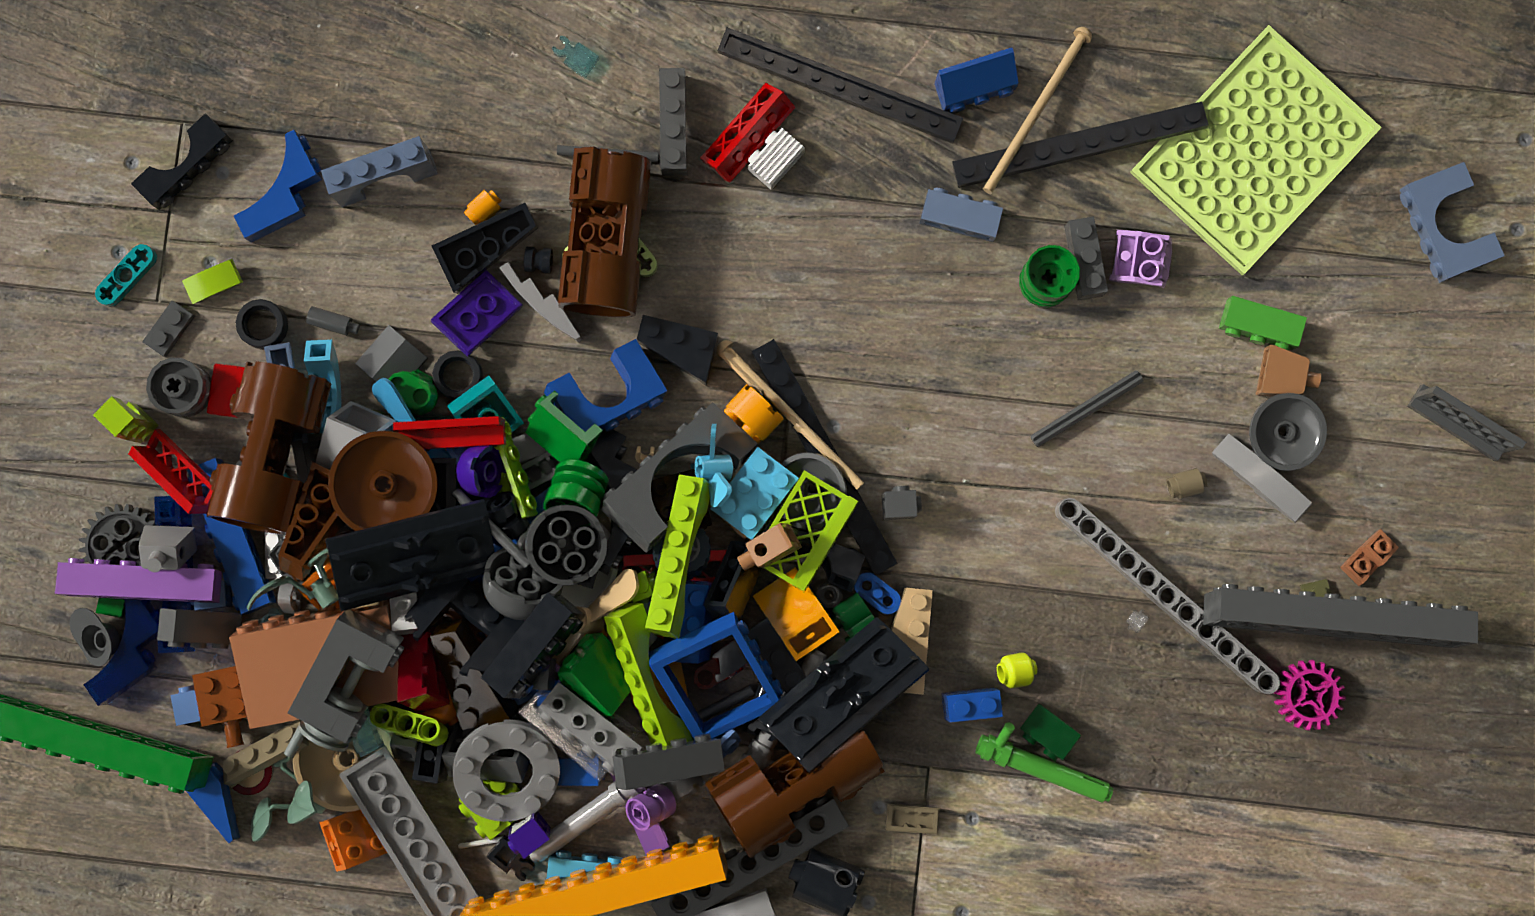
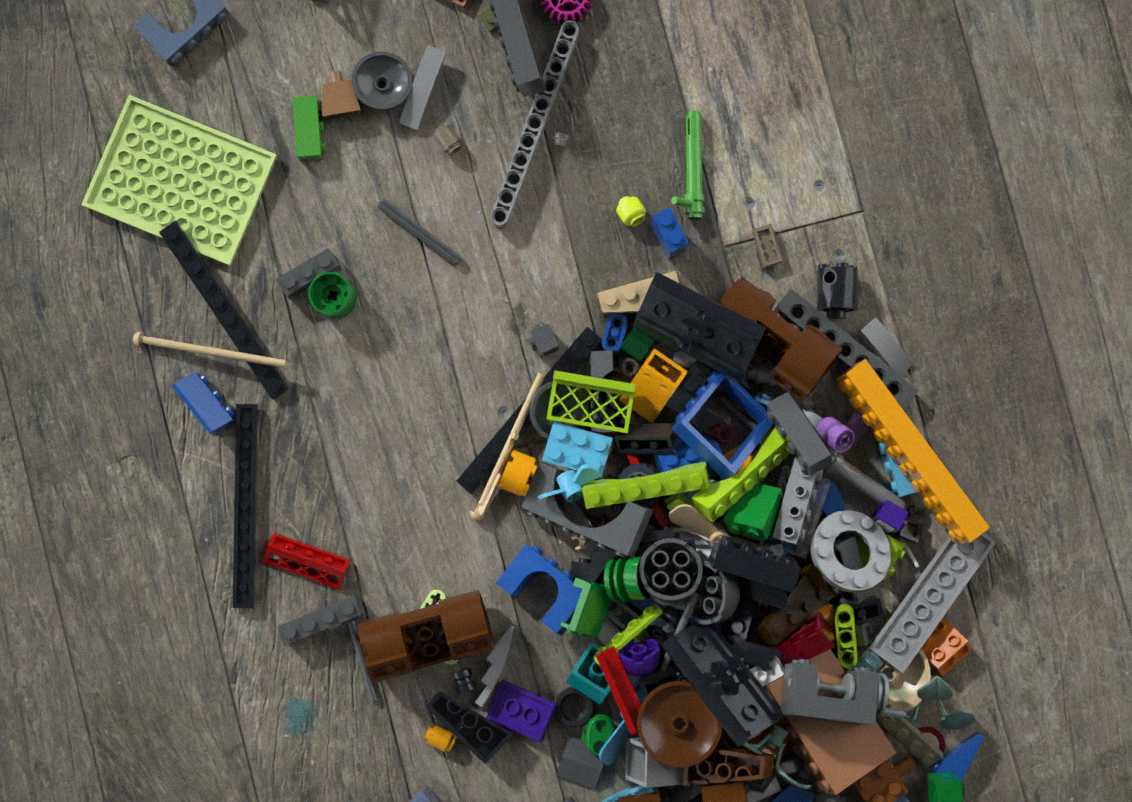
camera: 110 degrees left, 0 degrees up
(680, 344) = (487, 548): black wedge -> none
(776, 158) = (319, 532): white brick -> none
(779, 542) = (608, 415): medium nougat torso -> none
(961, 214) = (309, 377): sand blue brick -> none
(1050, 733) = (666, 170): dark green brick -> none
(1142, 258) = (293, 233): lavender slope -> none

